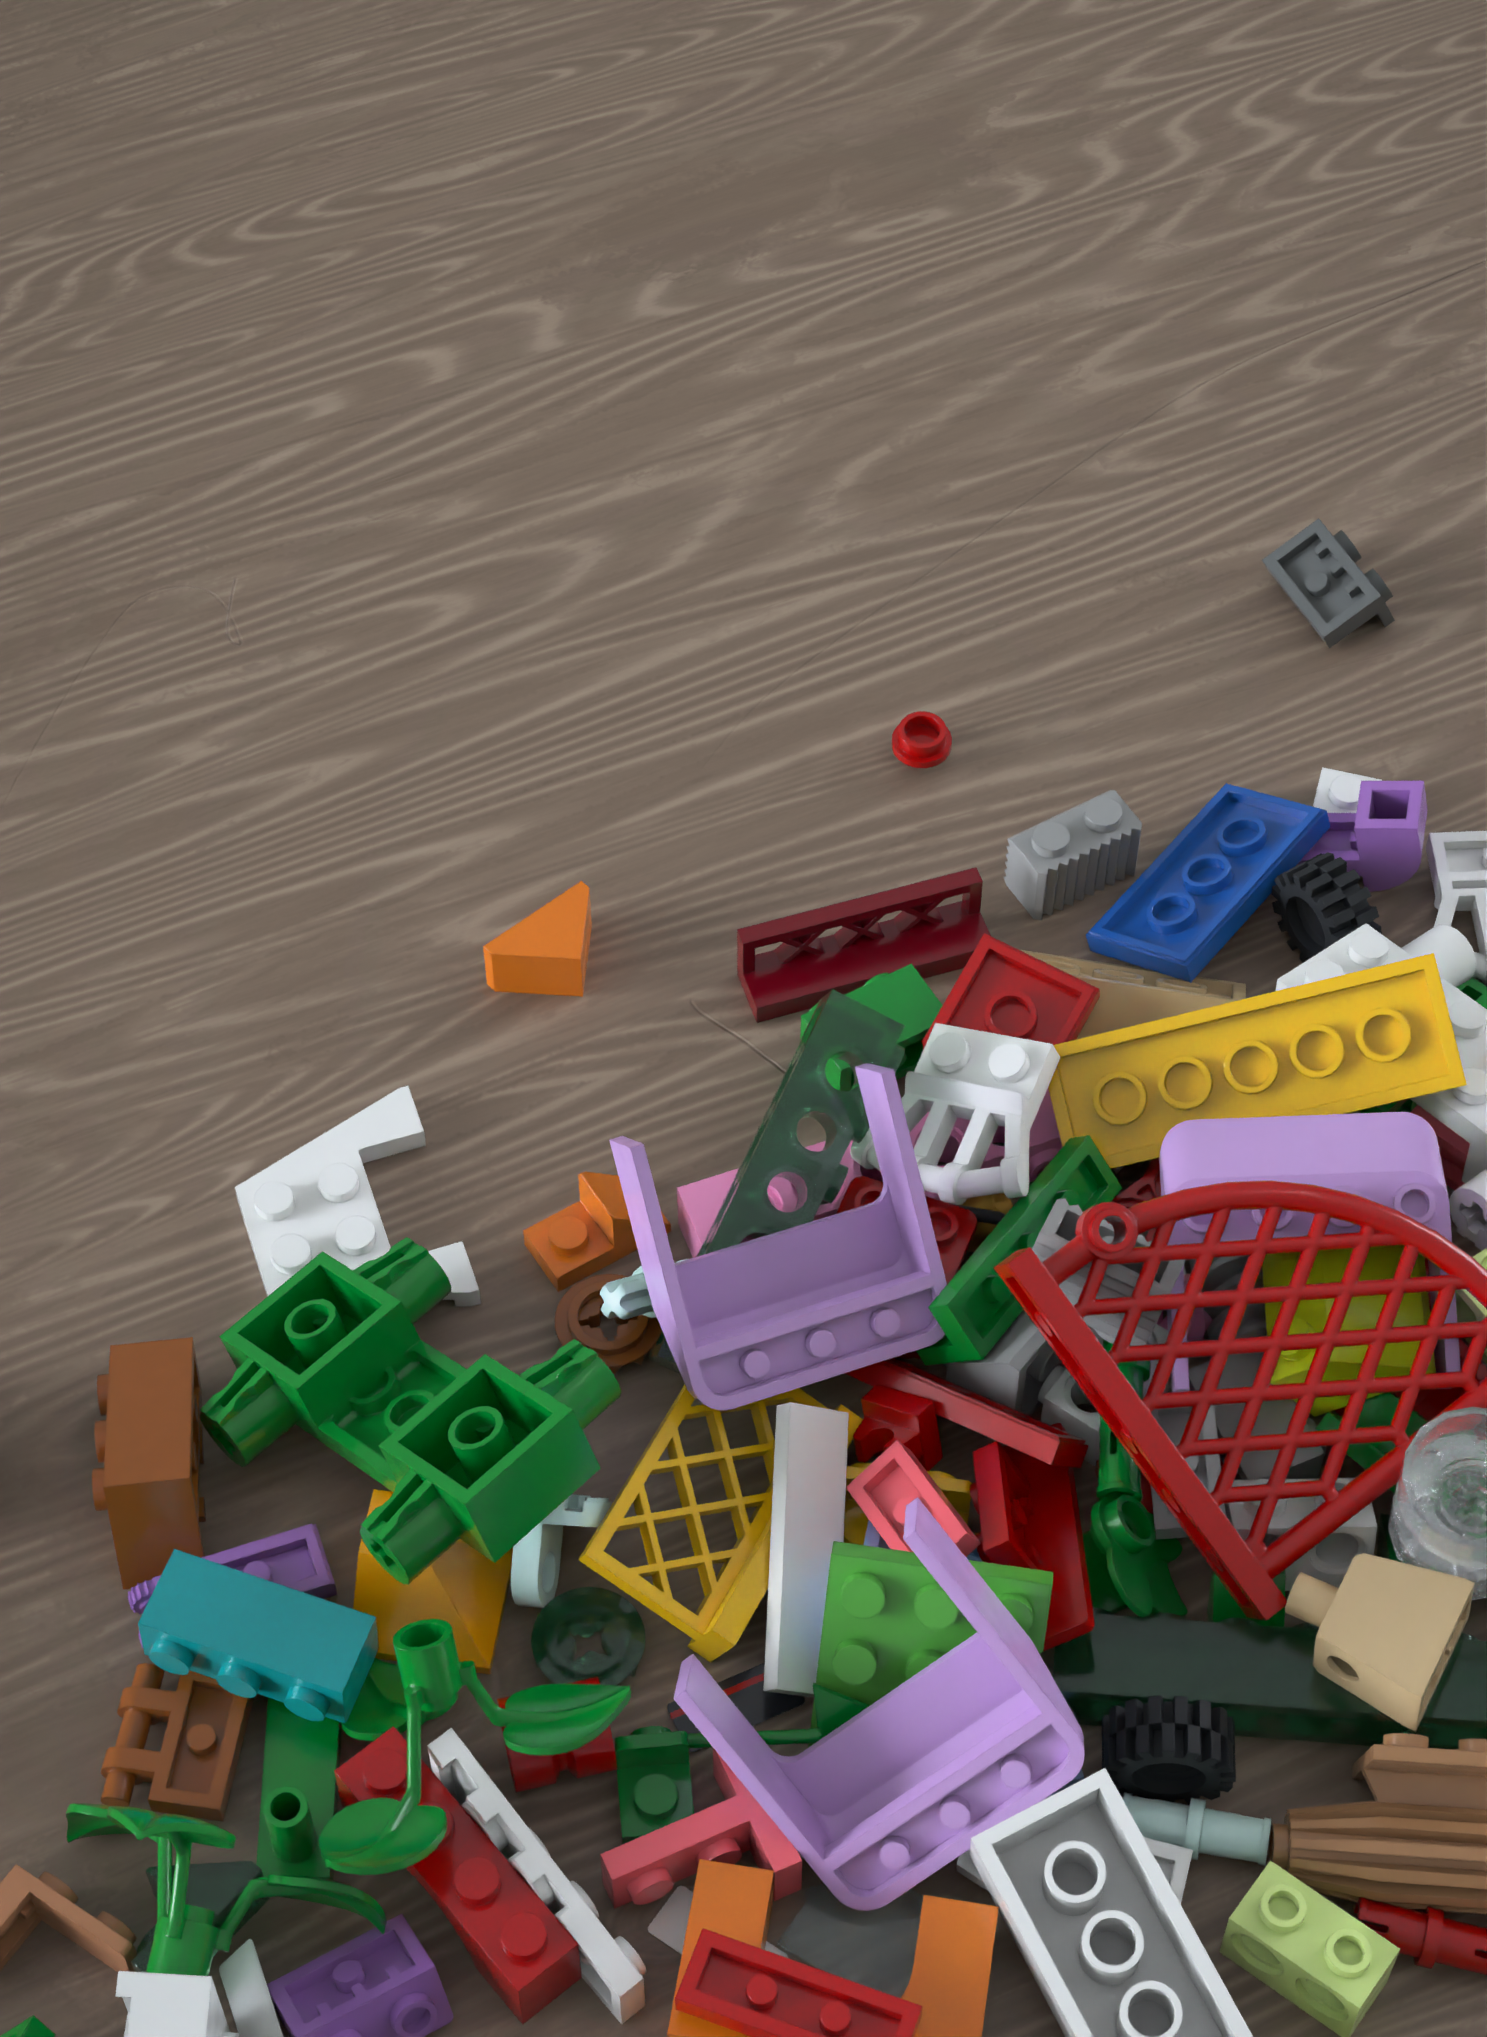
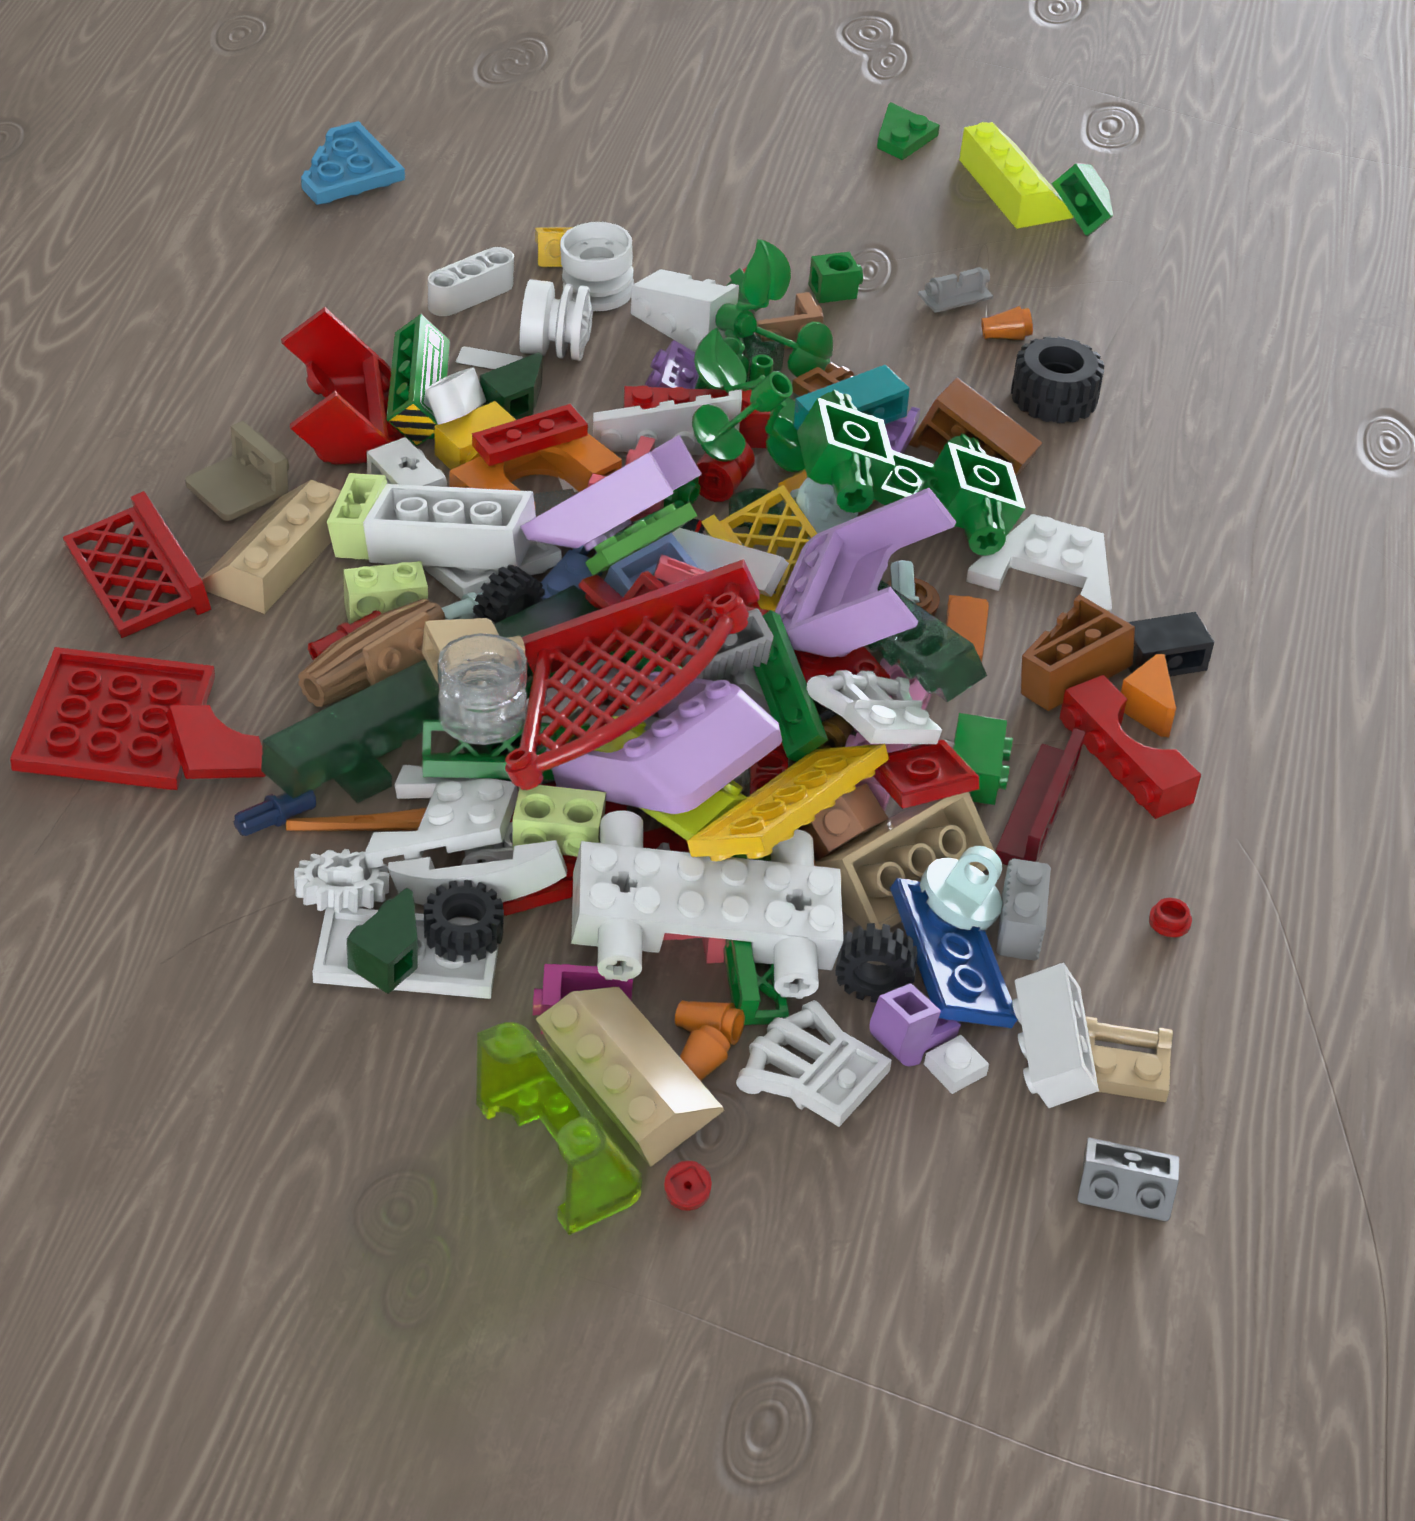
camera: 125 degrees right, 10 degrees down
(432, 983) = (1179, 637): none -> black brick
(566, 1049) = (1077, 649): none -> dark orange wedge
(651, 974) = (1155, 777): none -> red arch
(1125, 906) = (962, 892): none -> light aqua tile
(1186, 668) = (1129, 1071): none -> tan plate
(1234, 721) = (1054, 1036): none -> white brick

